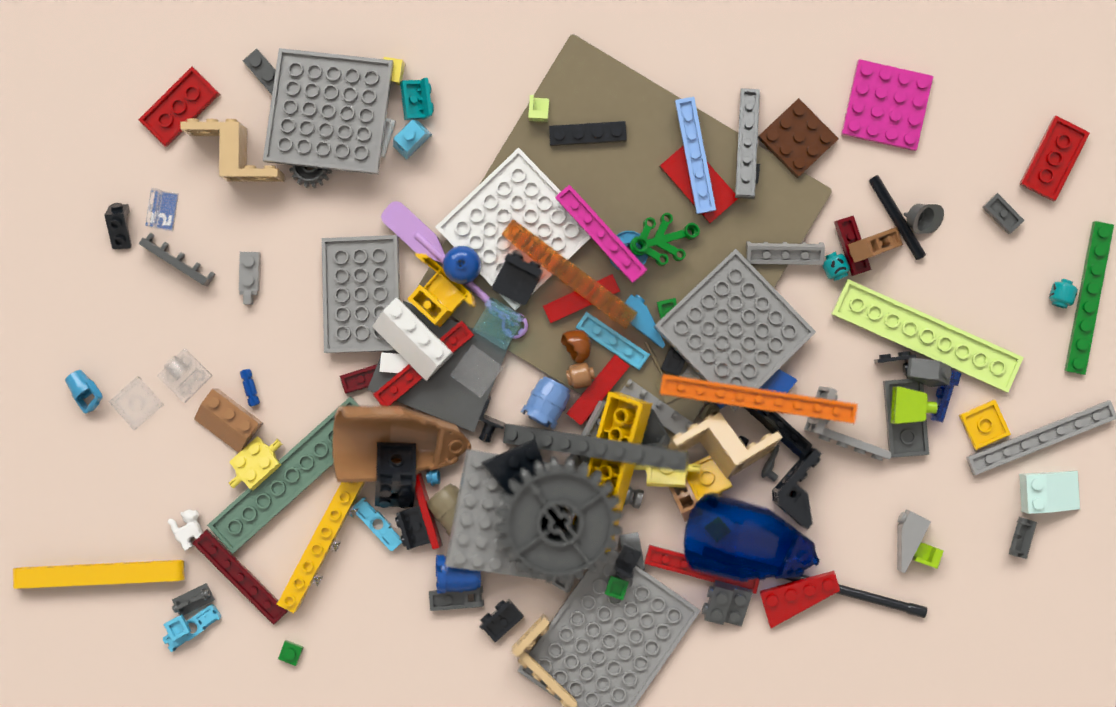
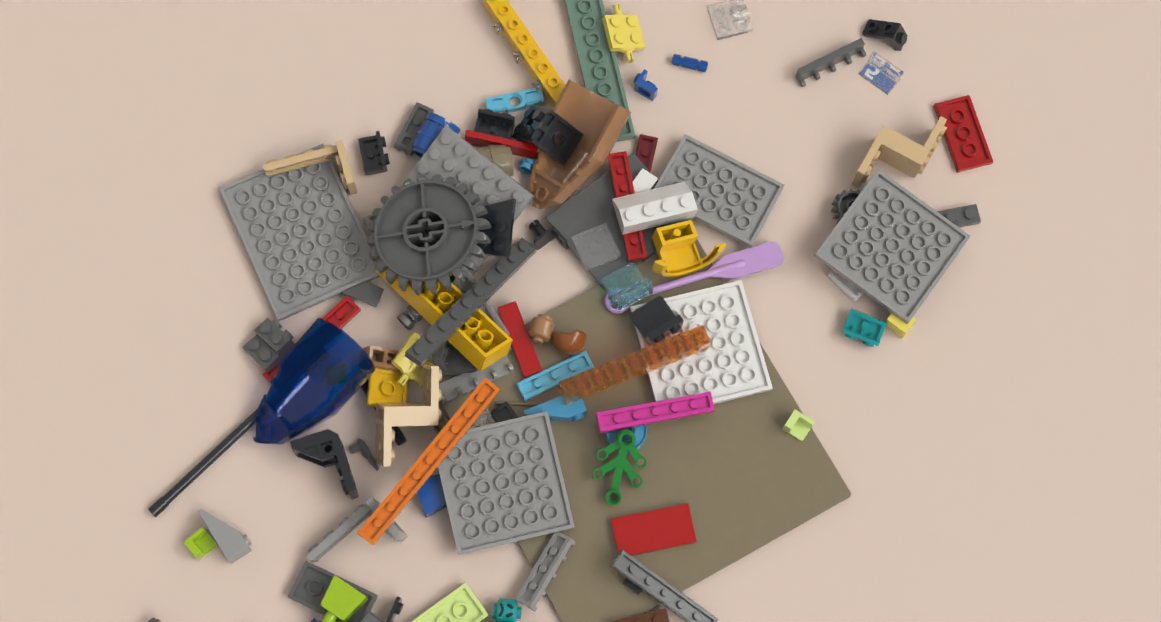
camera: 110 degrees right, 15 degrees down
(227, 419) = (673, 32): medium nougat slope -> none
(249, 276) = (785, 112): light grey hinge -> none
(298, 414) = (645, 88): none -> blue bracket
(410, 138) = (831, 303): medium azure torso -> none
(464, 274) = (695, 282): blue cylinder -> none
(547, 402) = (534, 289): medium blue piece -> none
(574, 302) = (608, 351): red tile -> none
(587, 133) = (752, 457): black plate -> none
(616, 587) = (341, 259): green plate -> none
(626, 561) = (357, 277): black bracket -> none
(666, 306) = (559, 437): green plate -> none
(695, 155) = (679, 537): light blue plate -> none
(790, 436) = (381, 480): black plate -> none
(794, 597) = (237, 407): red wing -> none

